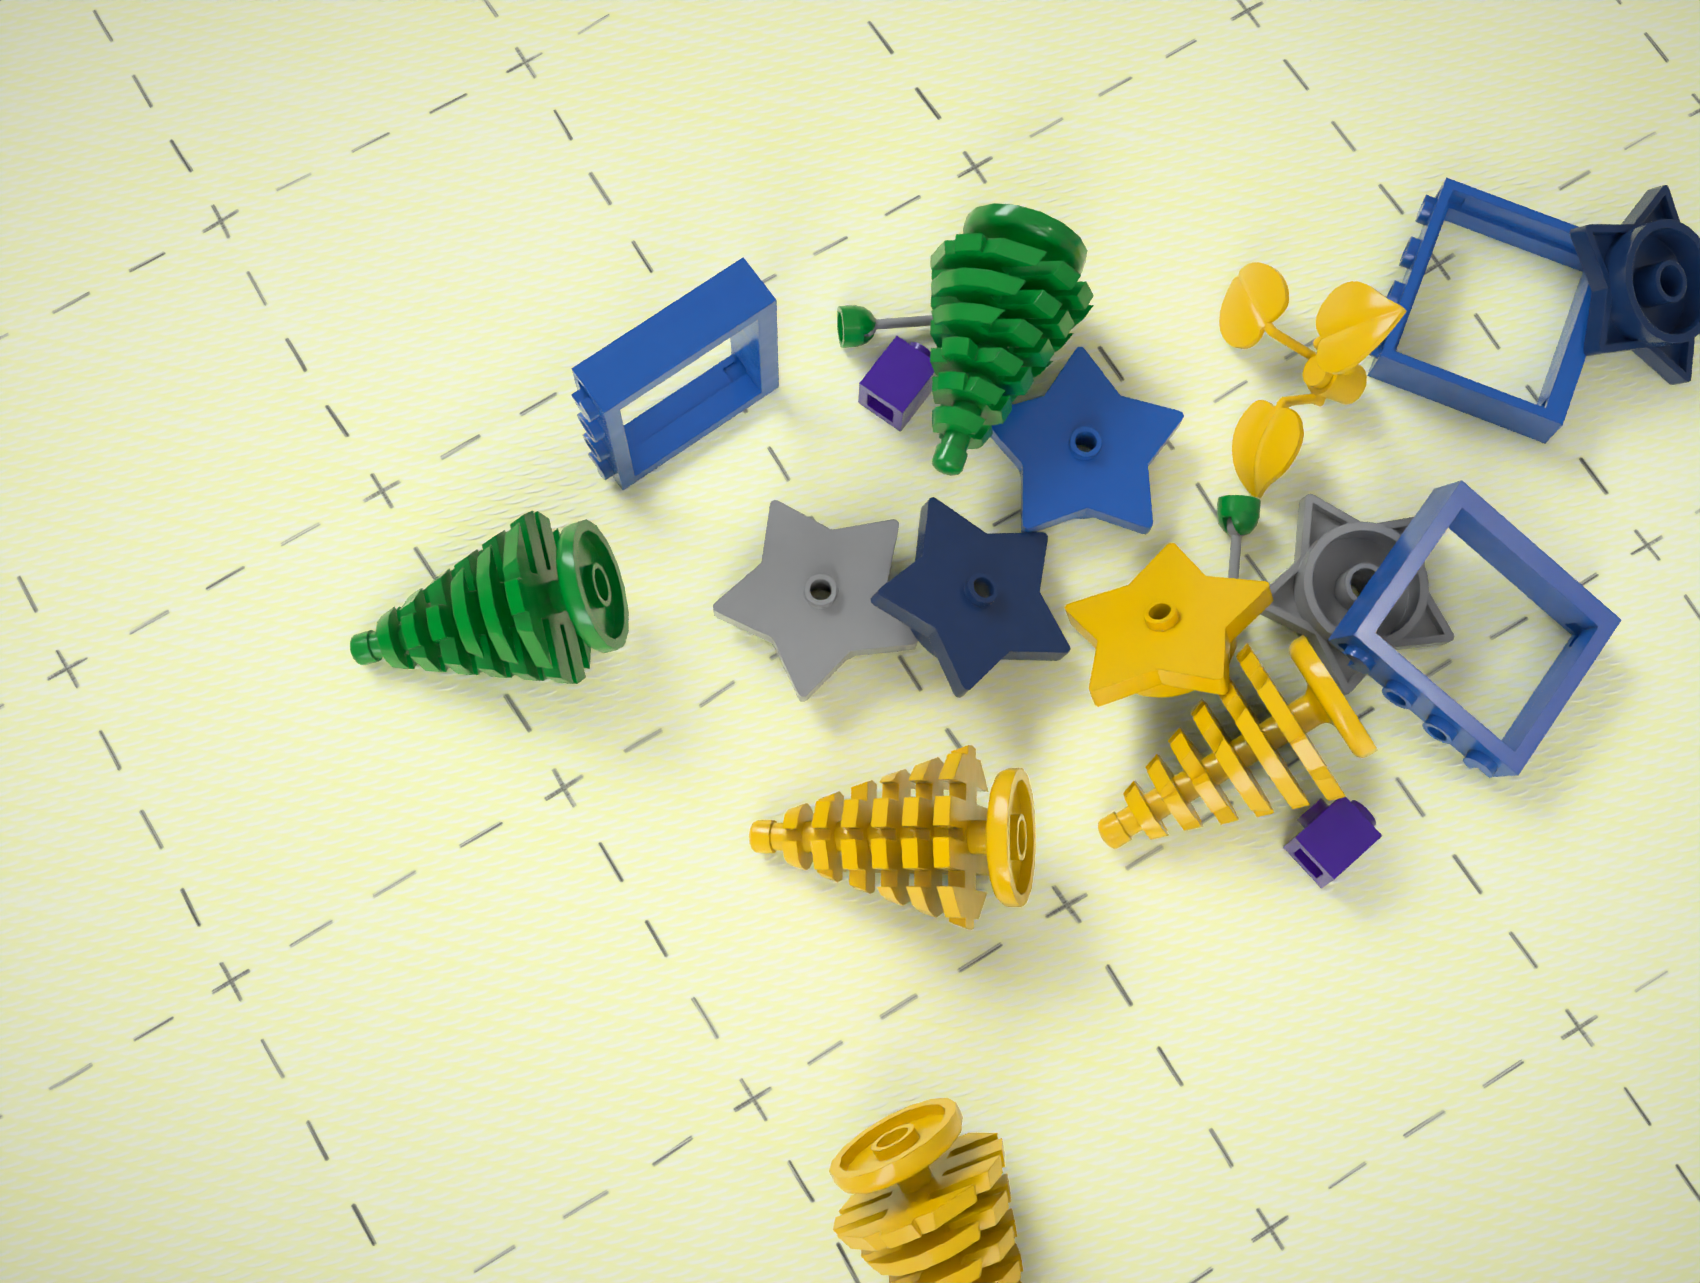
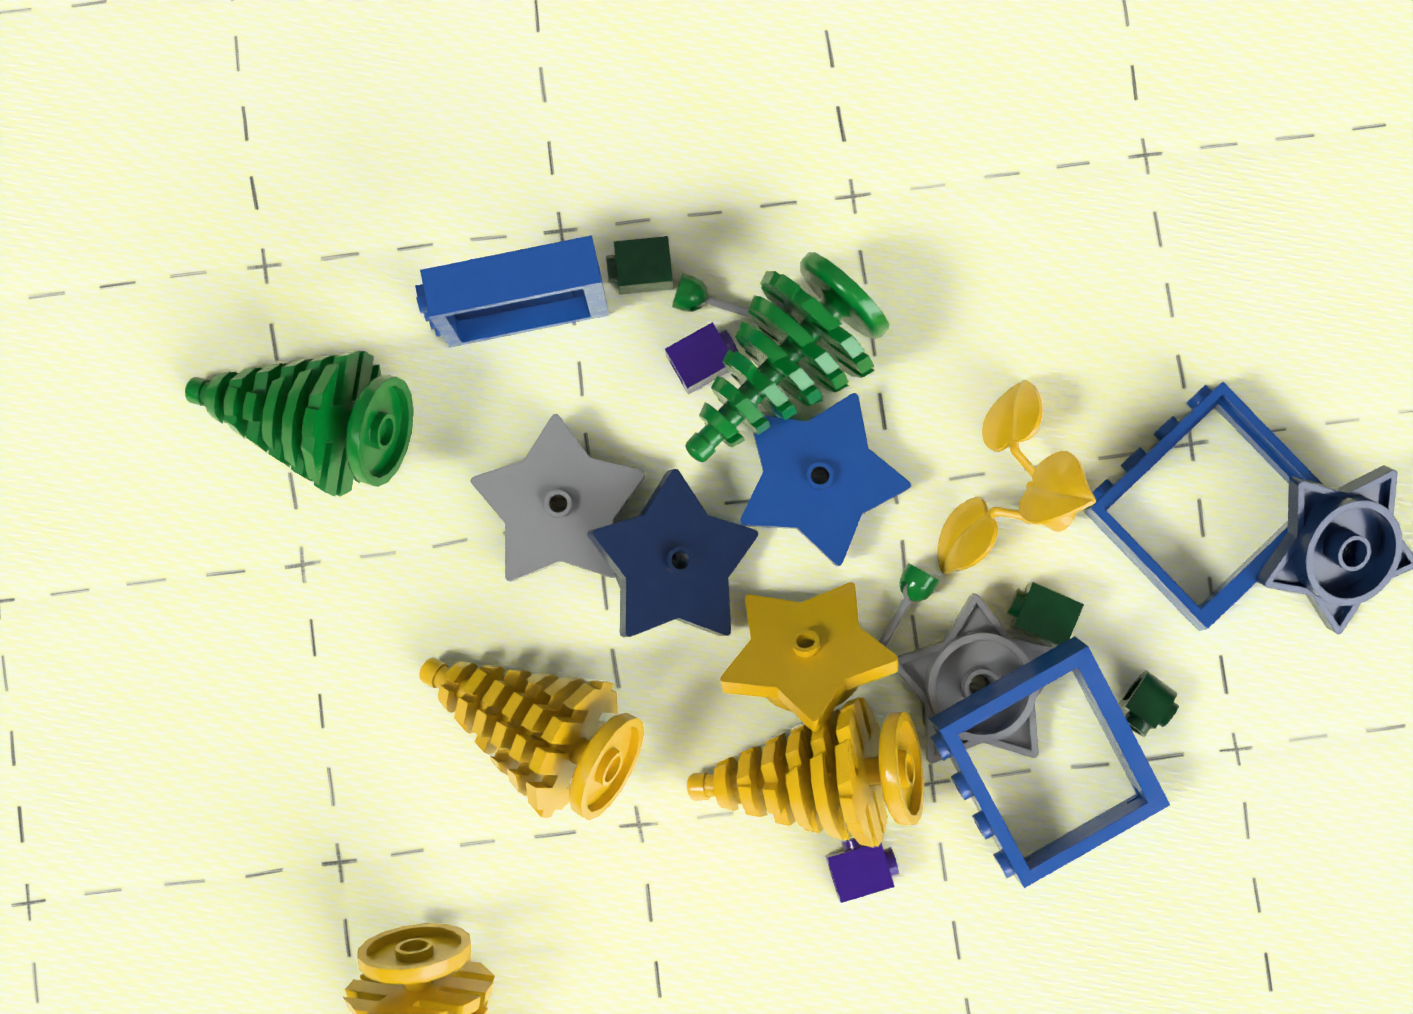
camera: 30 degrees right, 10 degrees up
(802, 314) = (641, 265): none -> dark green brick
(1386, 486) = (1044, 614): none -> dark green brick
(1544, 525) = (1148, 704): none -> dark green plate

